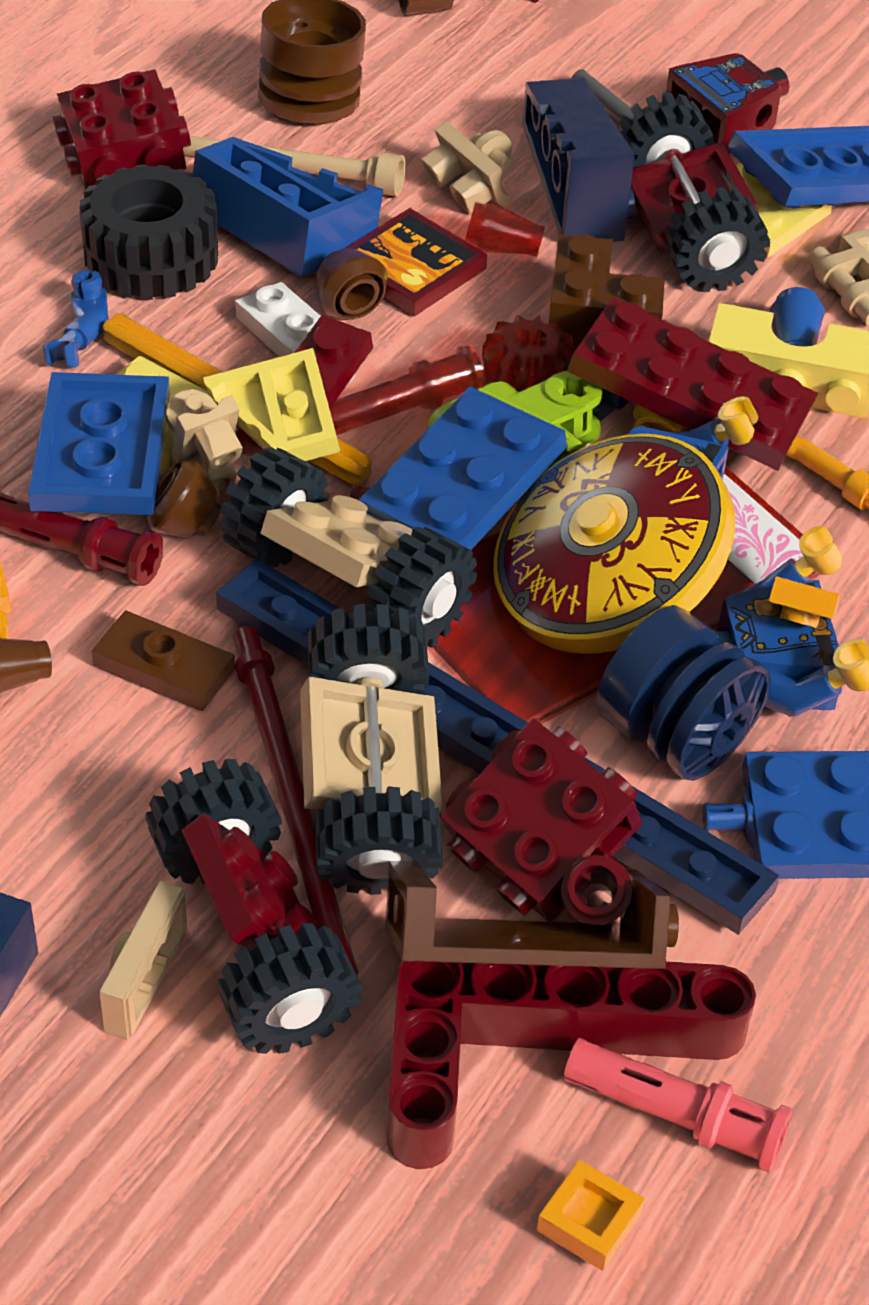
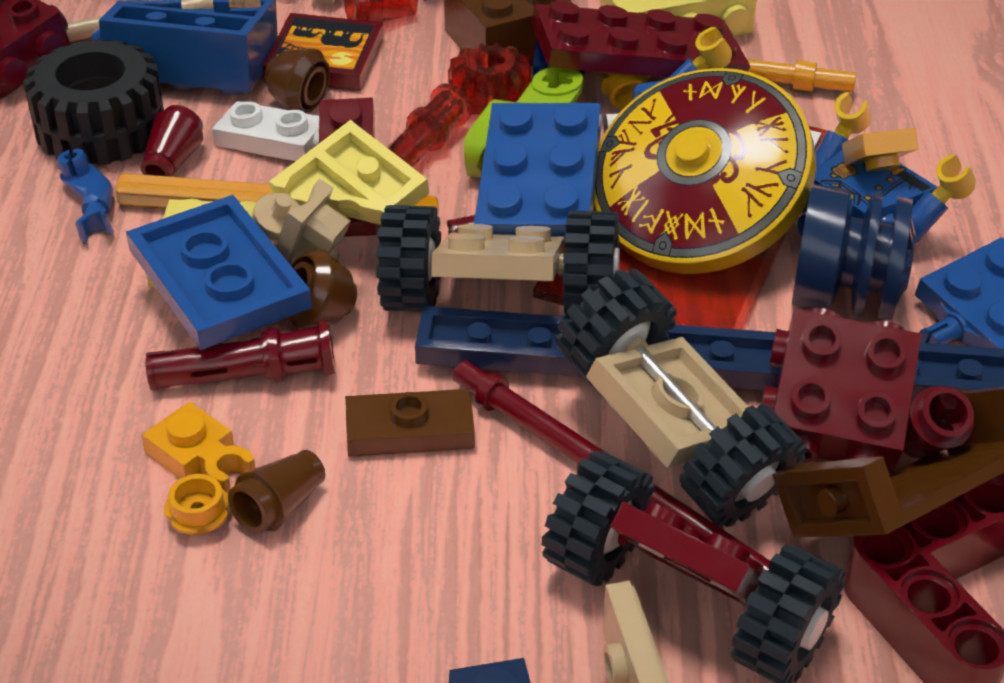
camera: 30 degrees left, 5 degrees down
(187, 299) = (171, 141): none -> dark red cone

